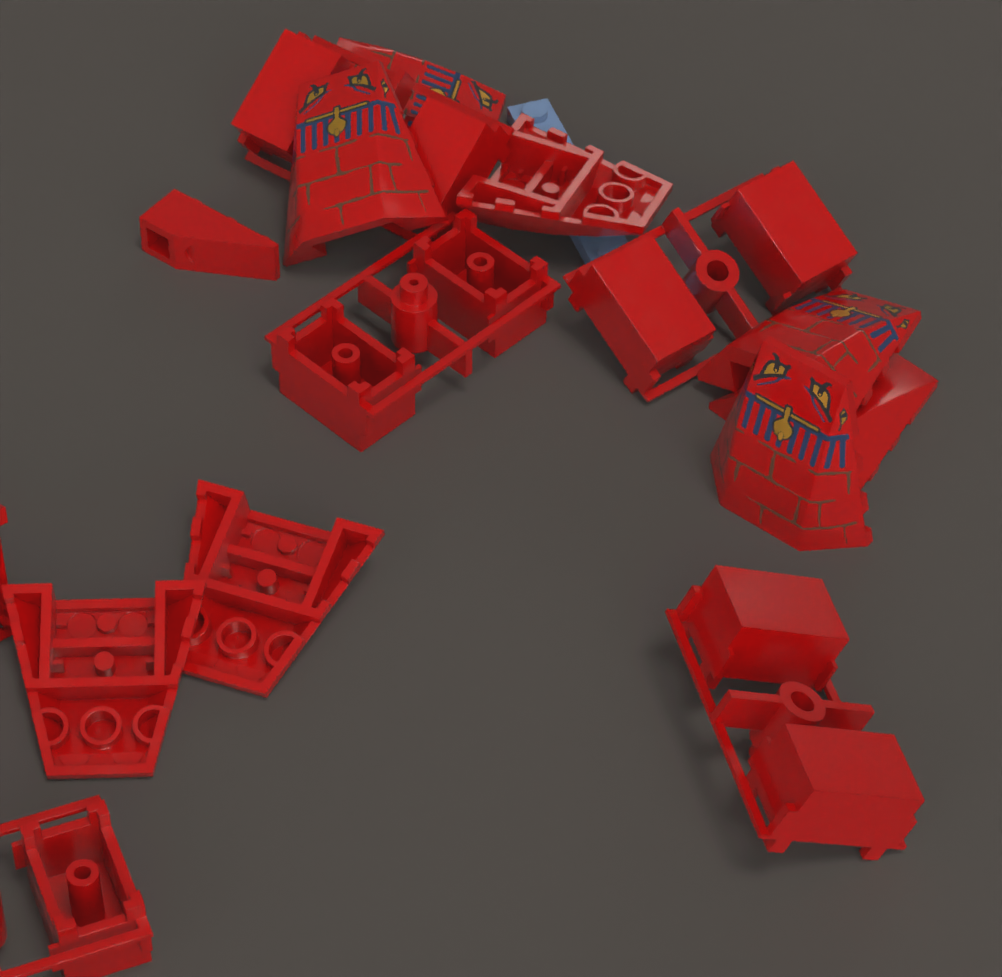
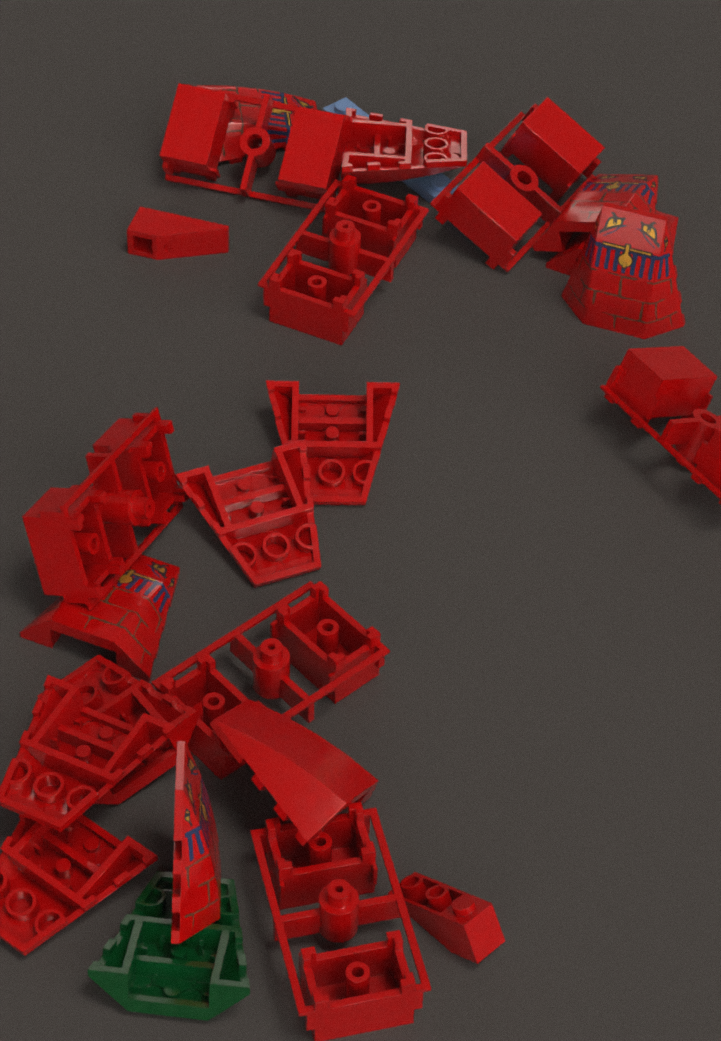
camera: 20 degrees left, 0 degrees up
(353, 164) = (259, 162): red wedge -> none

